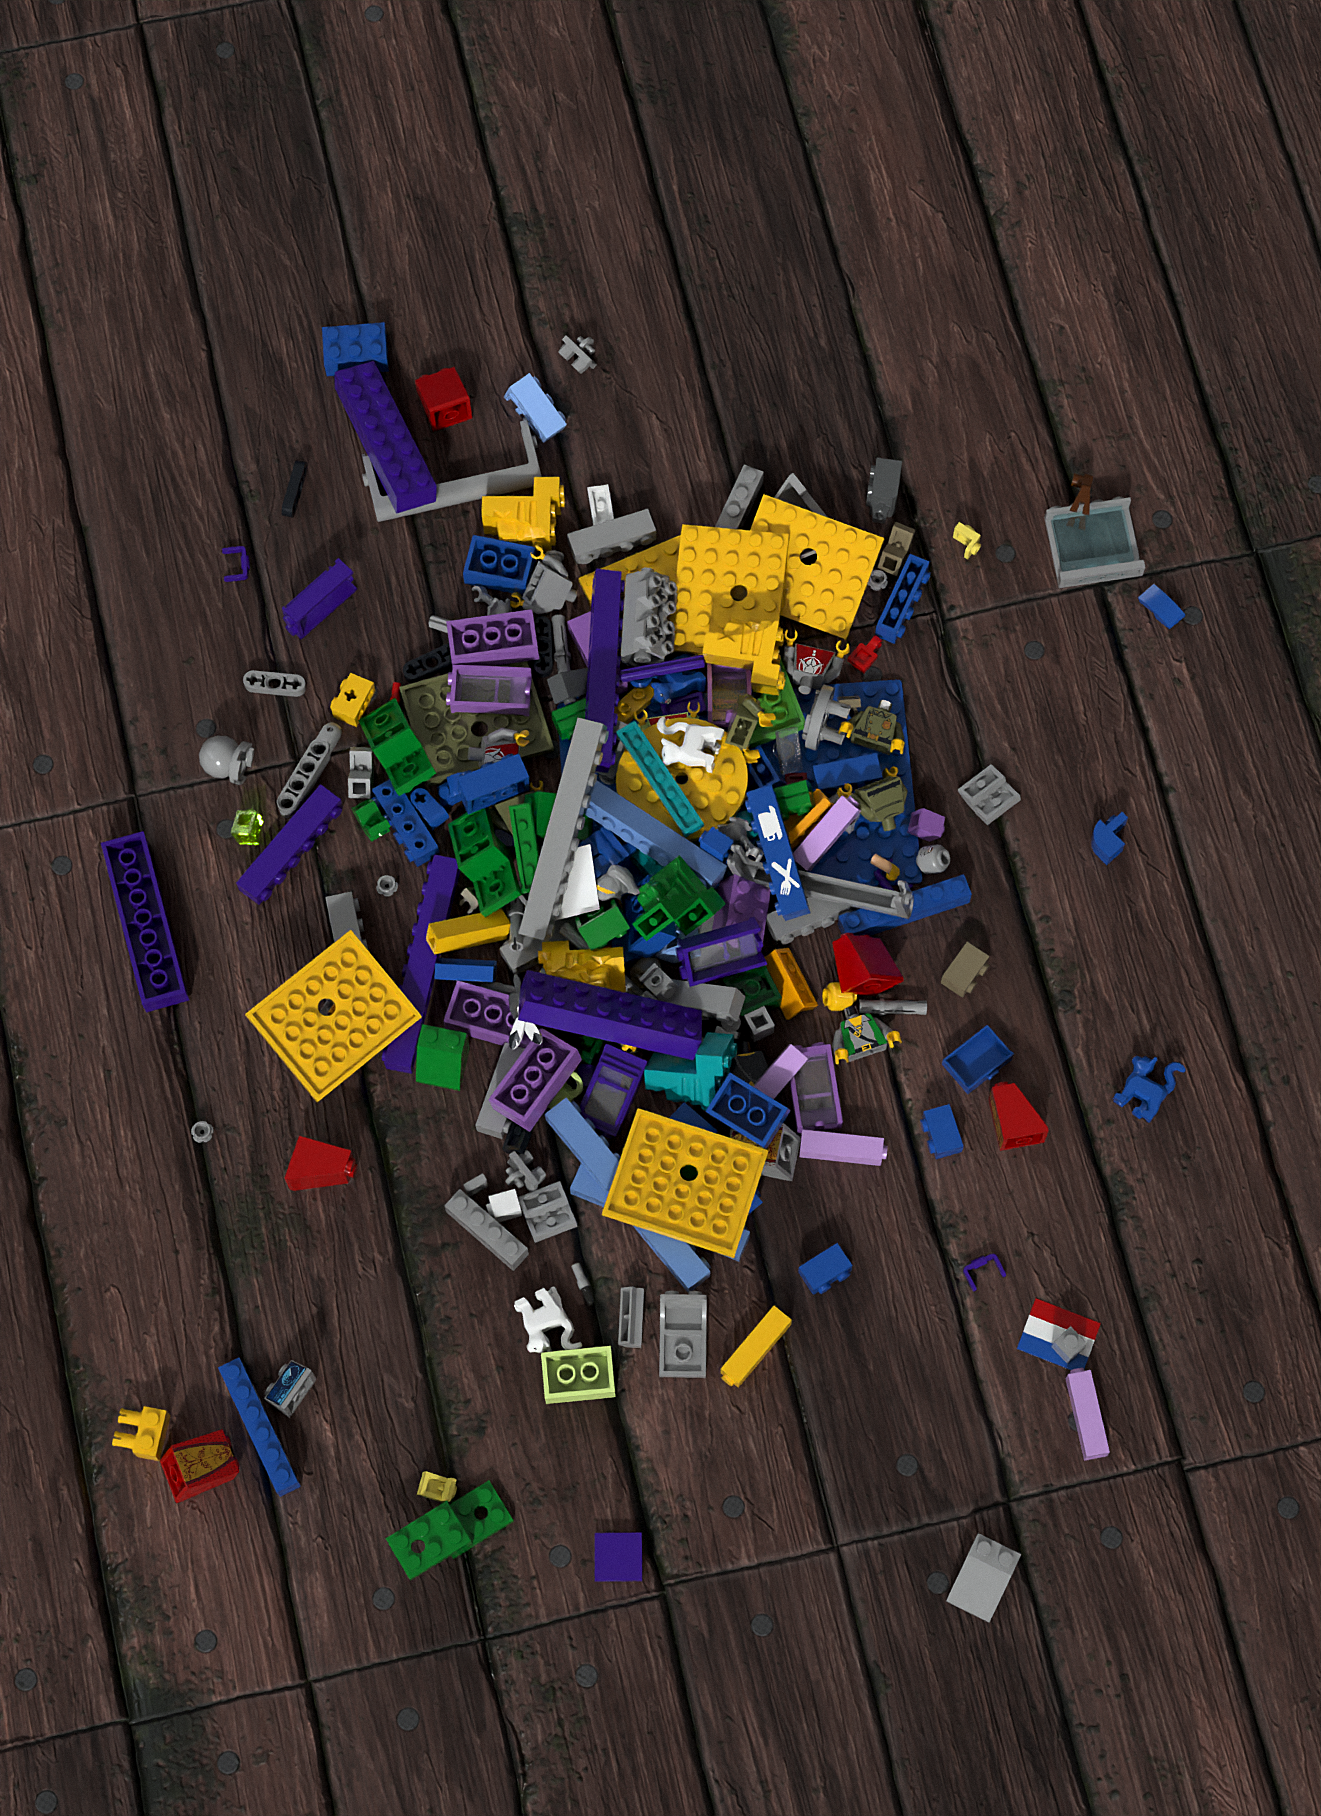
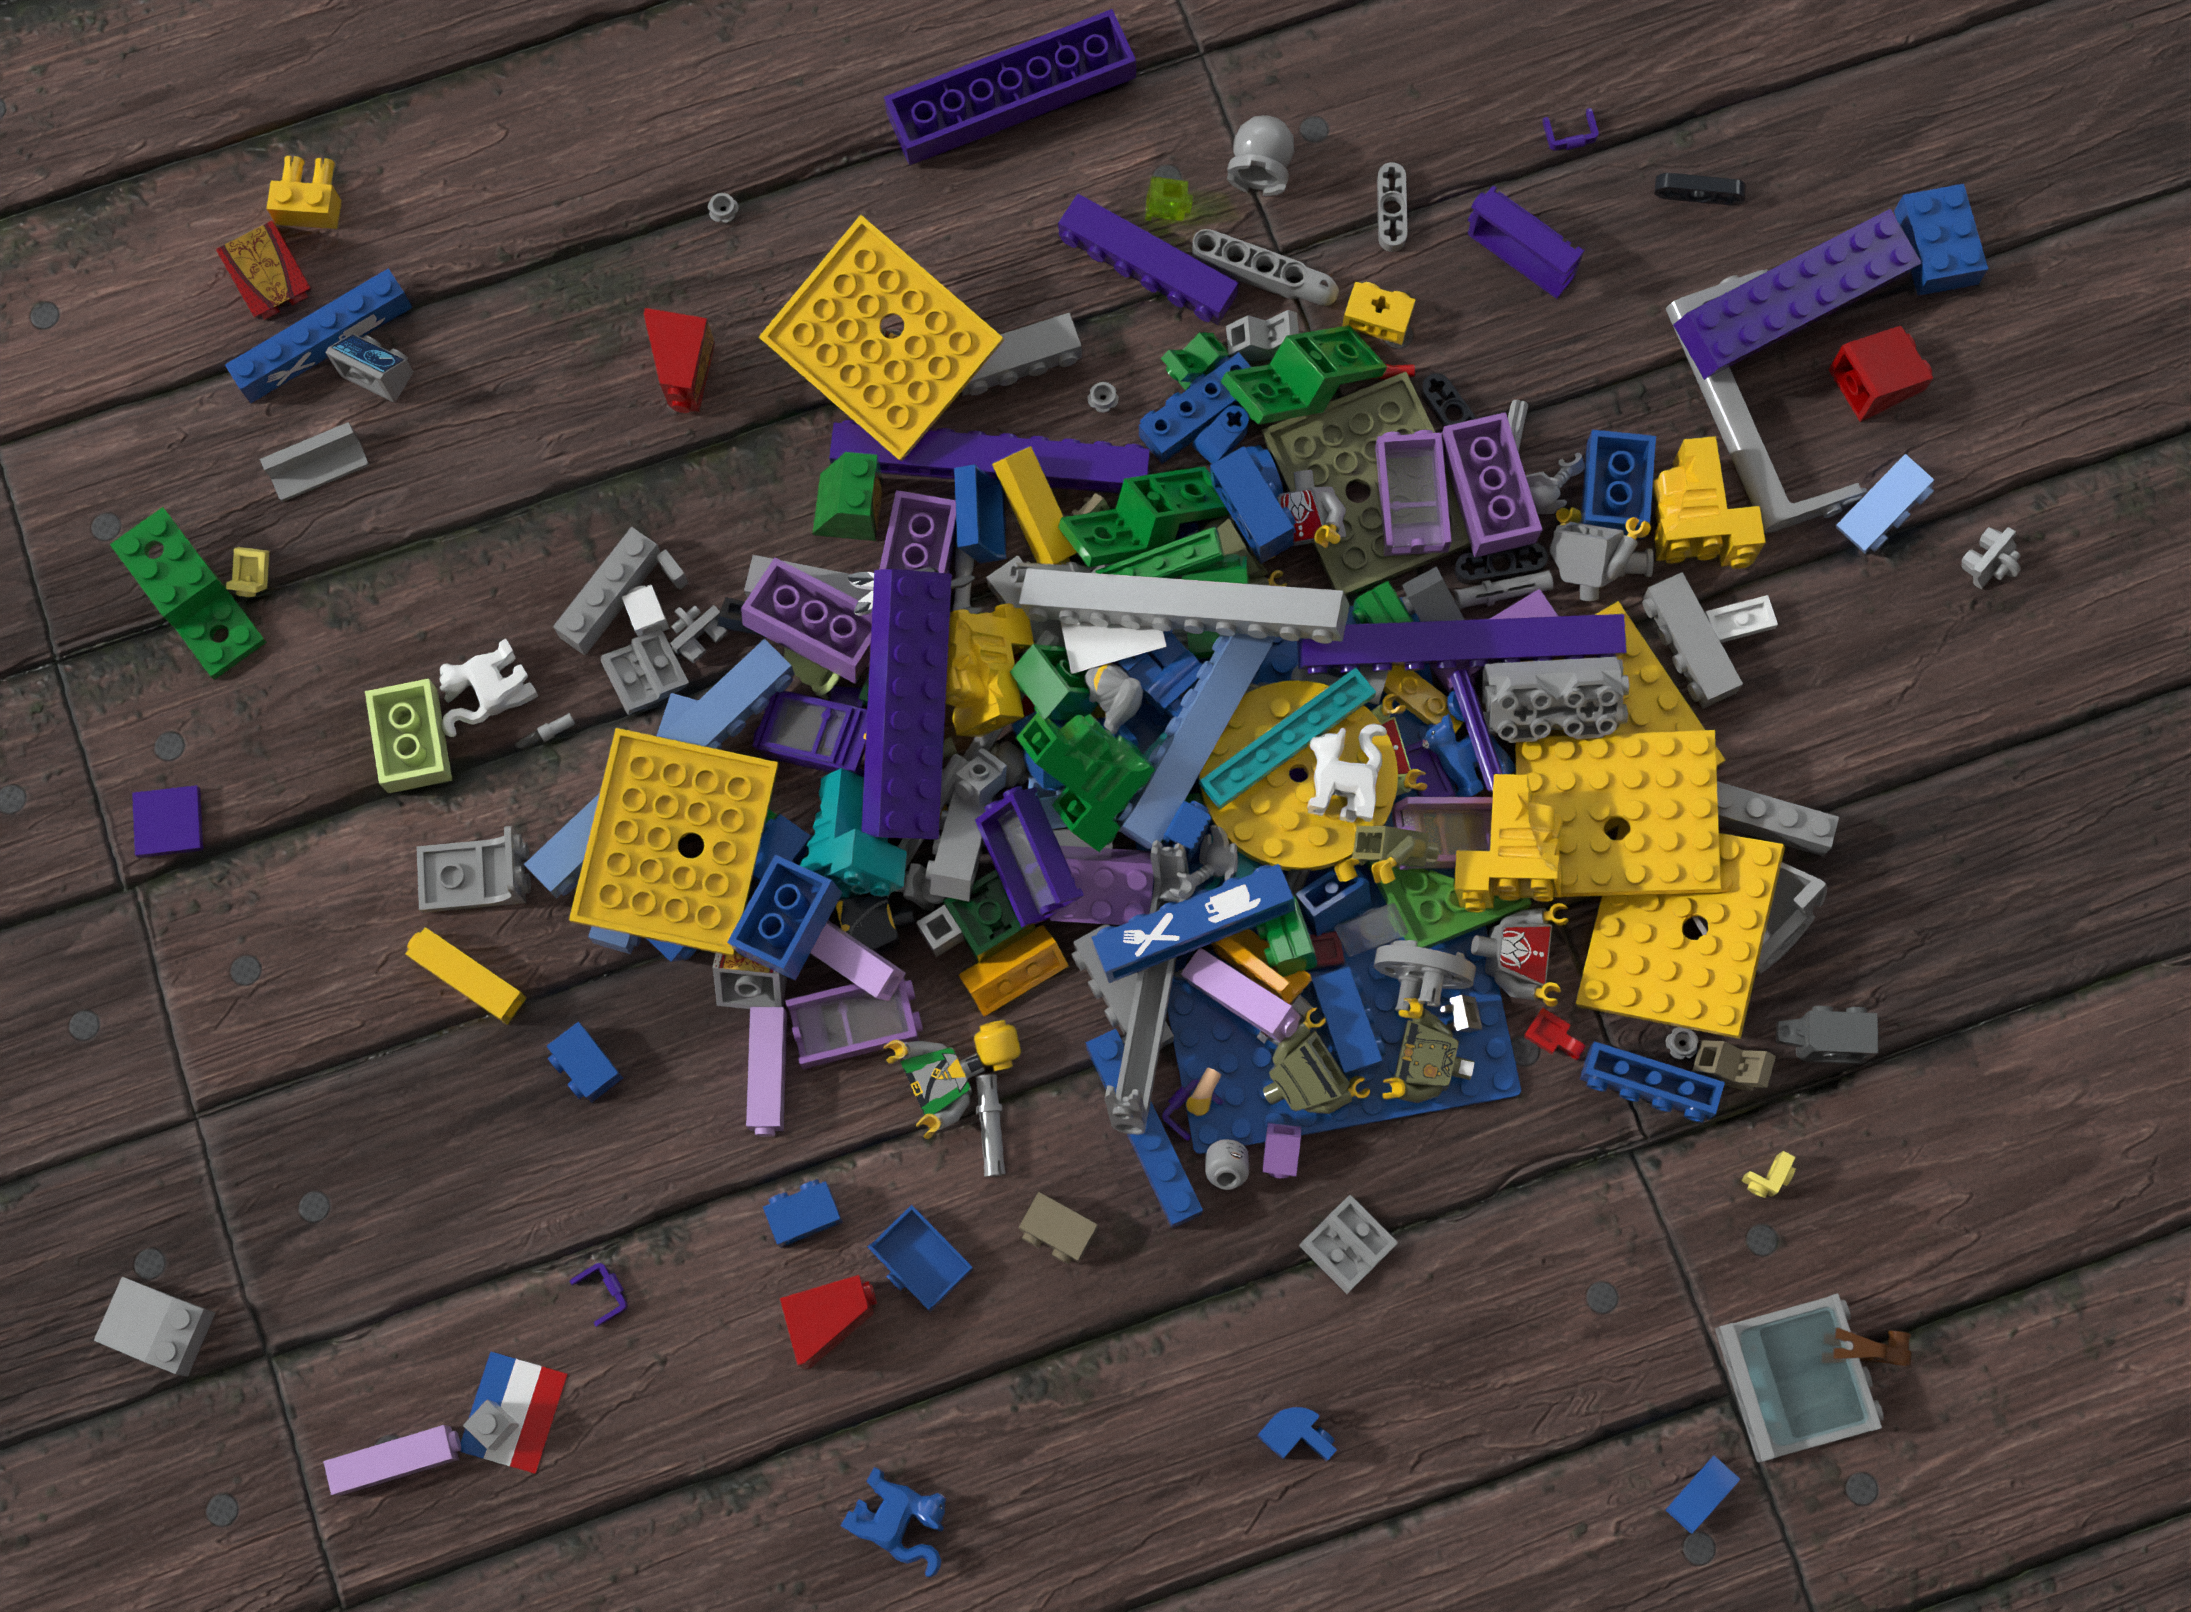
camera: 85 degrees right, 5 degrees up
(358, 1436) = (315, 462): none -> light grey panel
(631, 1317) = (499, 801): light grey piece -> none
(864, 965) = (1044, 1073): red slope -> none

